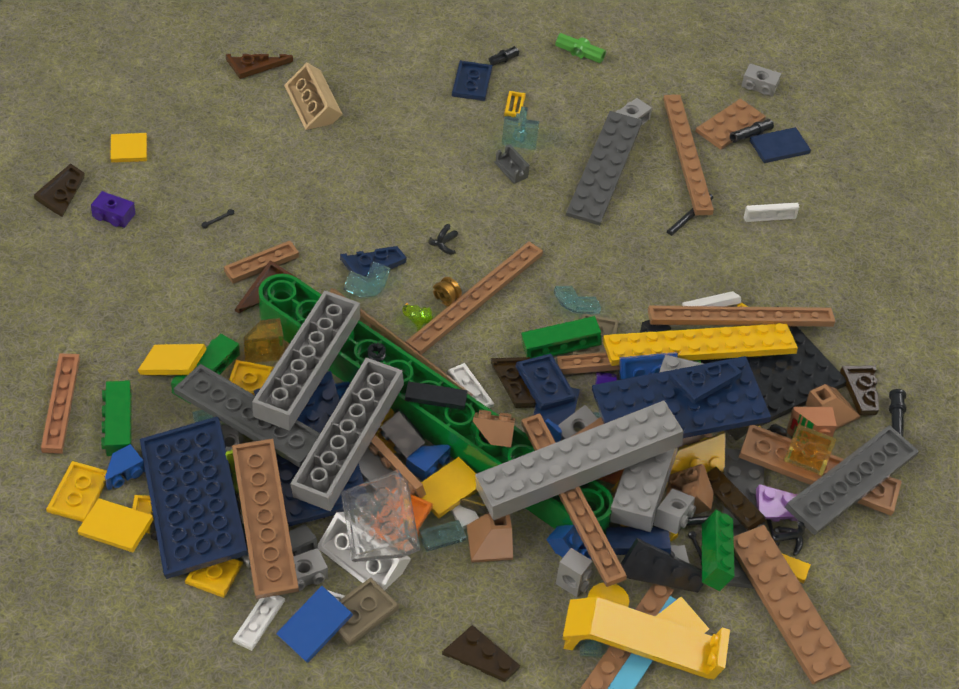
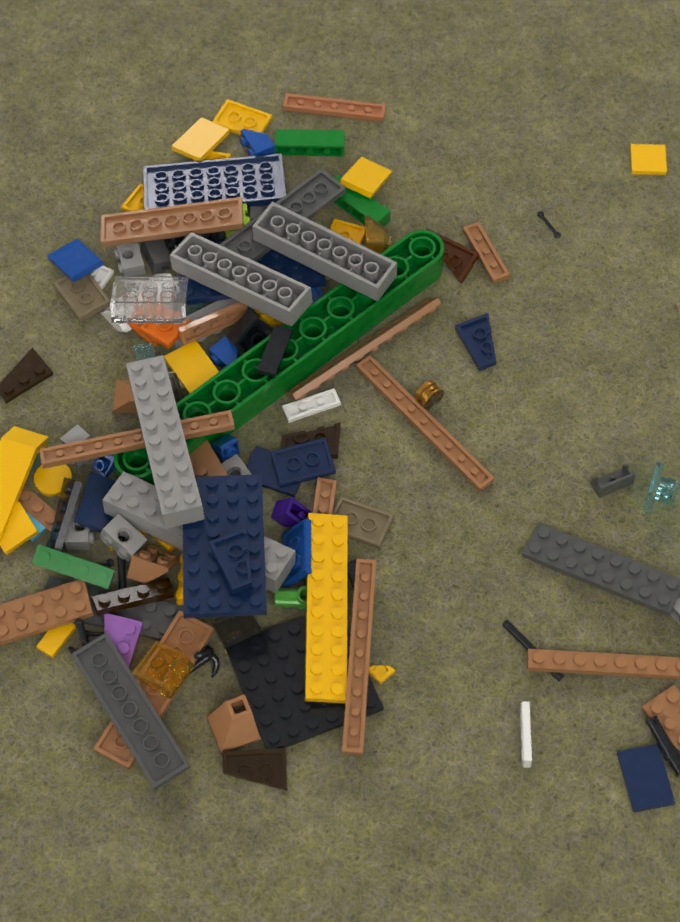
camera: 105 degrees right, 10 degrees up
(60, 190) = (589, 108): dark brown wing -> none
(113, 209) = (558, 143): dark purple brick -> none
(258, 621) = (87, 226): white tile -> none
(369, 285) = (446, 334): clear light blue plate -> none
(380, 349) = (336, 306): black bush -> none
(417, 315) = (403, 370): clear neon green animal -> none
(444, 238) = (501, 397): black piece -> none
(496, 429) = (225, 387): medium nougat slope -> none
(562, 338) = (354, 484): green brick -> none
(569, 300) = (406, 505): clear light blue plate -> none
(722, 300) = (394, 640): white tile -> none
(815, 418) = (202, 691): nougat slope -> none
(897, 409) = (222, 794): black pin -> none

